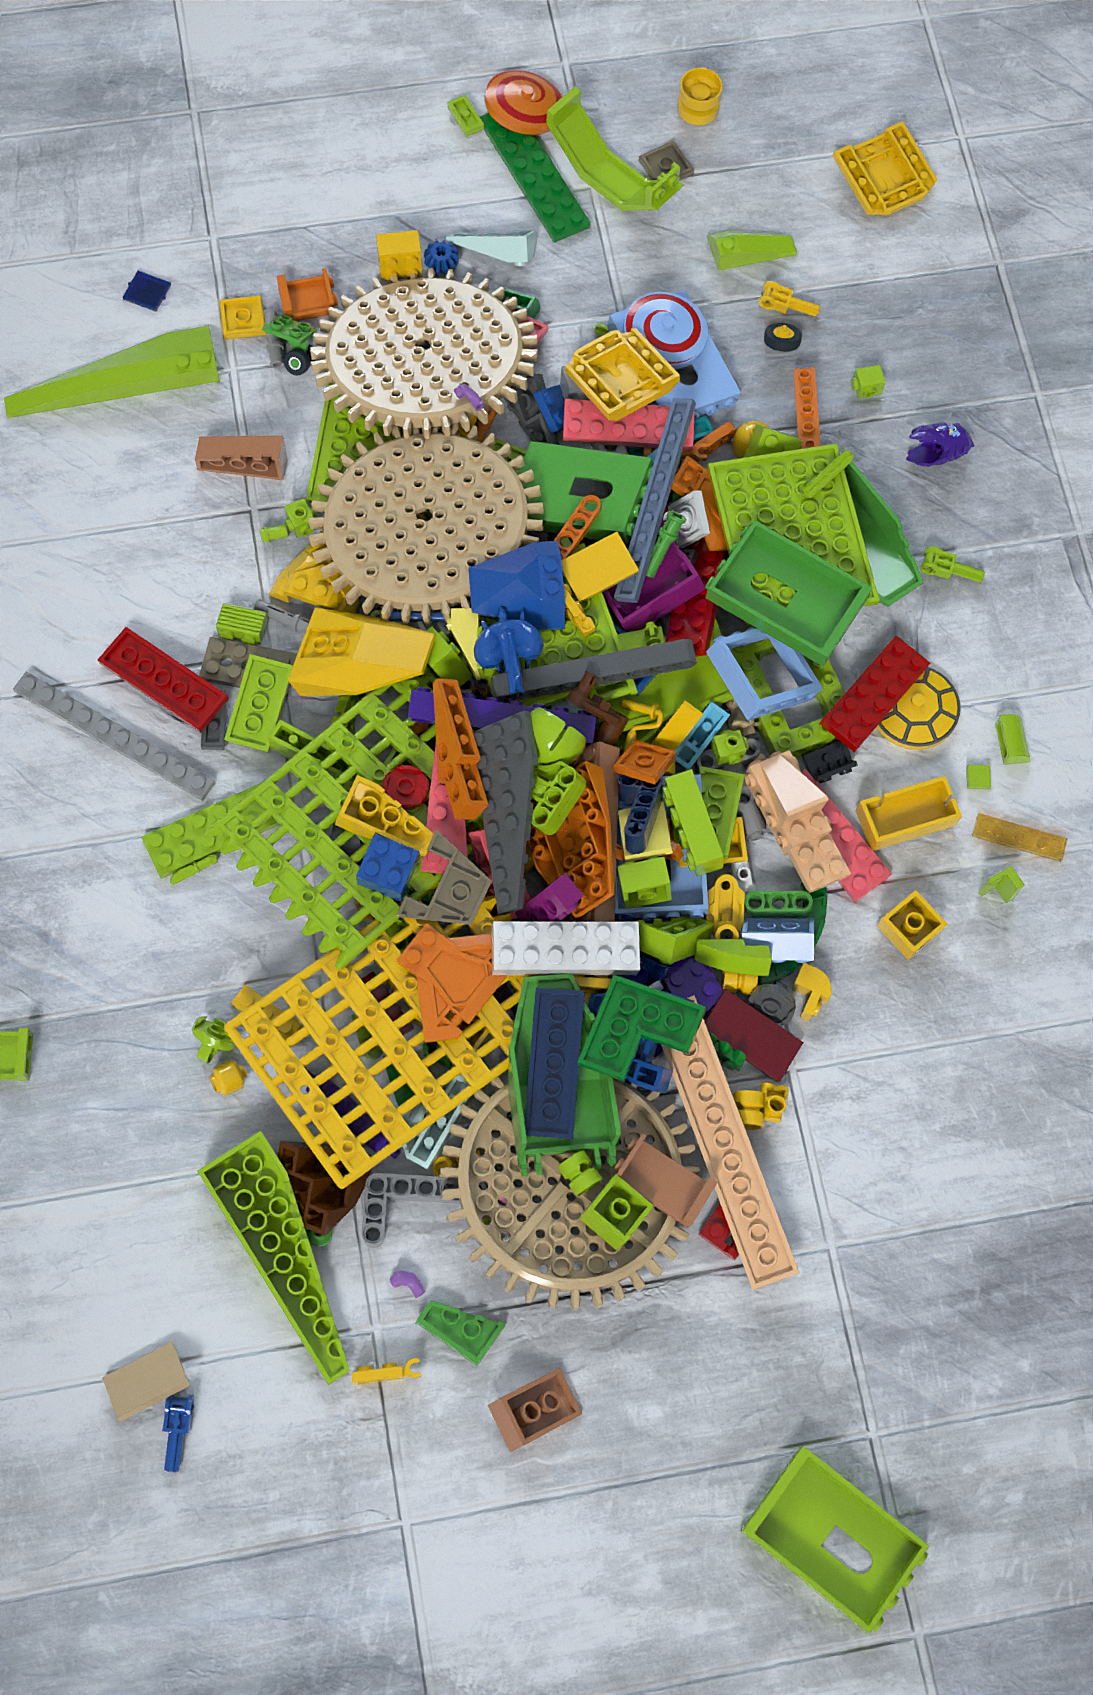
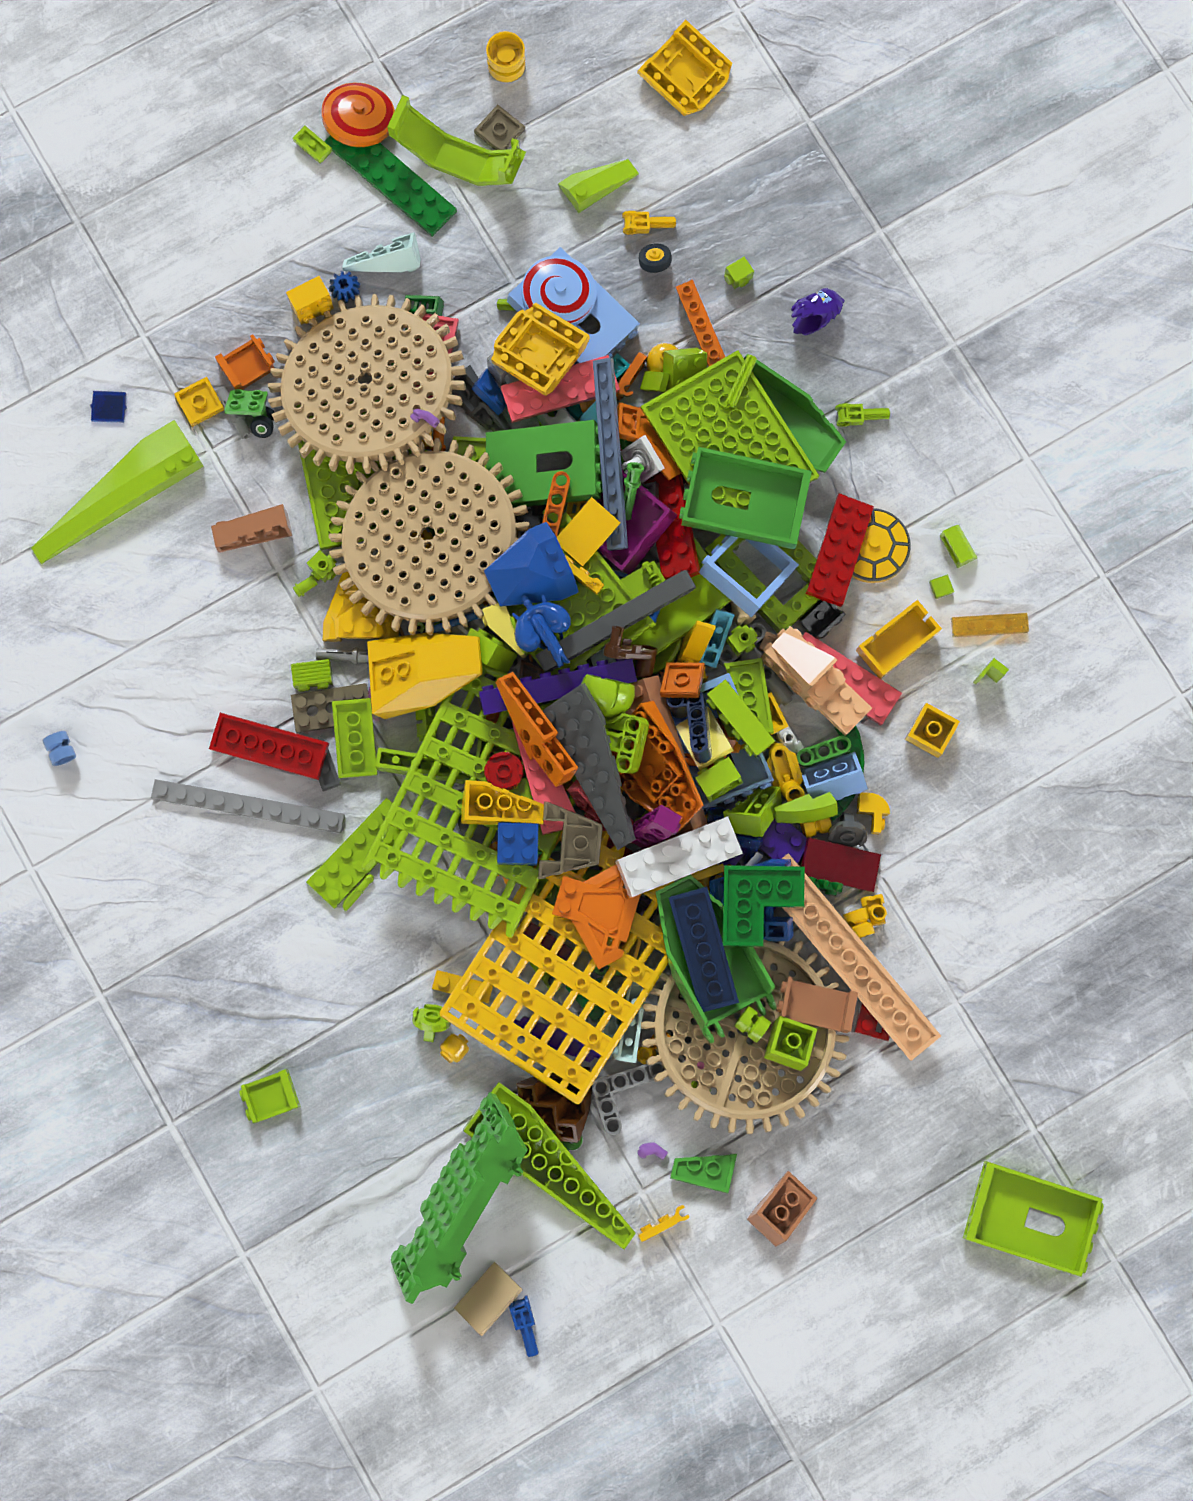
camera: 20 degrees left, 10 degrees up
(156, 1244) = (458, 1201): none -> bright green piece
(652, 710) = (665, 634): yellow piece -> none
(735, 451) = (654, 381): none -> lime tile

